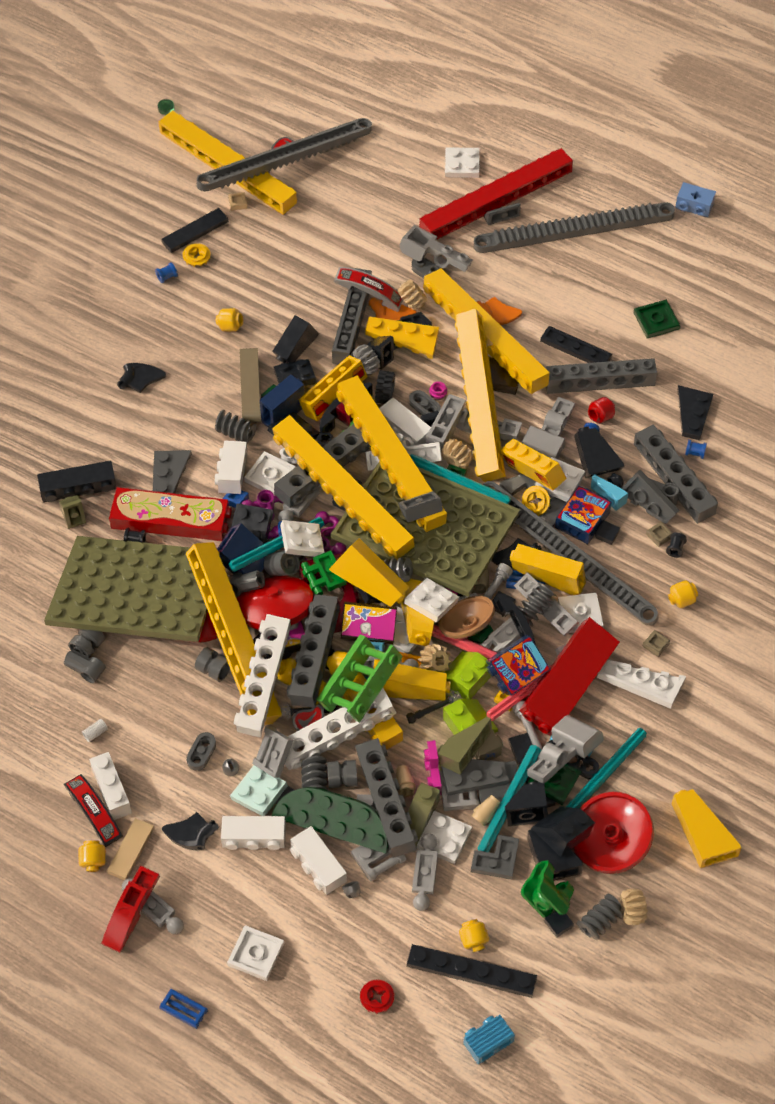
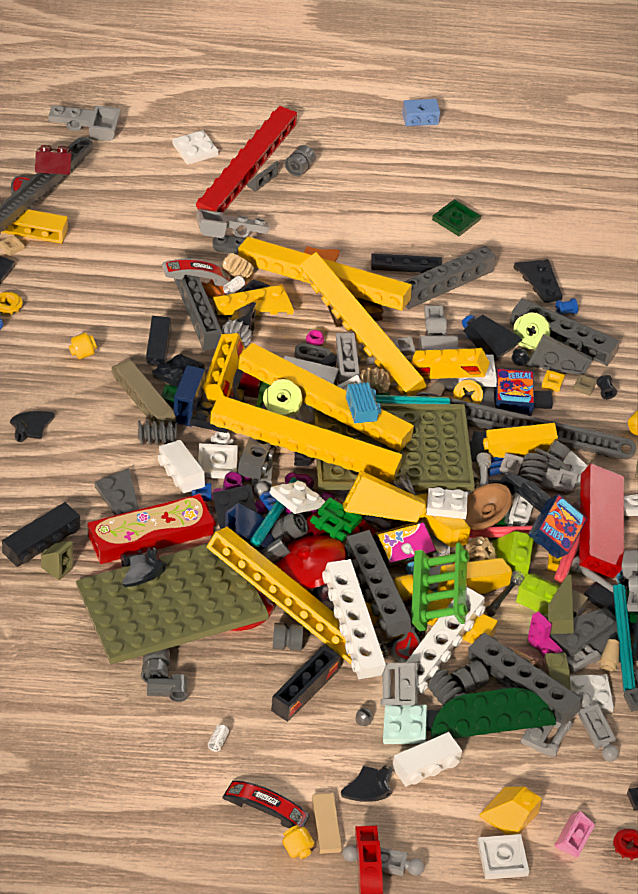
camera: 35 degrees left, 10 degrees down
(110, 786) = (268, 773): white brick -> none
(132, 549) = (144, 568): none -> black arm
(196, 714) = (305, 683): none -> black brick
(199, 752) = (331, 715): dark grey plate -> none
(294, 915) = (512, 809): none -> yellow slope
(315, 132) = (53, 160): none -> dark red slope
(318, 861) = (500, 757): white brick -> none
(336, 963) = (575, 834): none -> bright pink slope
(351, 889) = (545, 767): flat silver hinge -> none
(355, 446) = (274, 392): none -> yellowish green plate
(384, 386) = (271, 343): black tyre -> none
(389, 109) = (101, 121): none -> light grey plate
(397, 311) = (235, 287): none -> white piece
(410, 472) = (362, 402): none -> dark azure brick
(421, 506) = (389, 427): dark grey slope -> none
(547, 208) = (300, 160): none -> dark grey wheel
(568, 592) = (556, 452): none -> dark grey wheel
(574, 227) = (331, 168): dark grey gear -> none
(601, 410) = (467, 303): red head -> none
(610, 491) = (523, 363): medium azure slope -> none
(631, 518) = (553, 380): none -> yellow tile
(645, 451) = (527, 321): none -> yellowish green plate

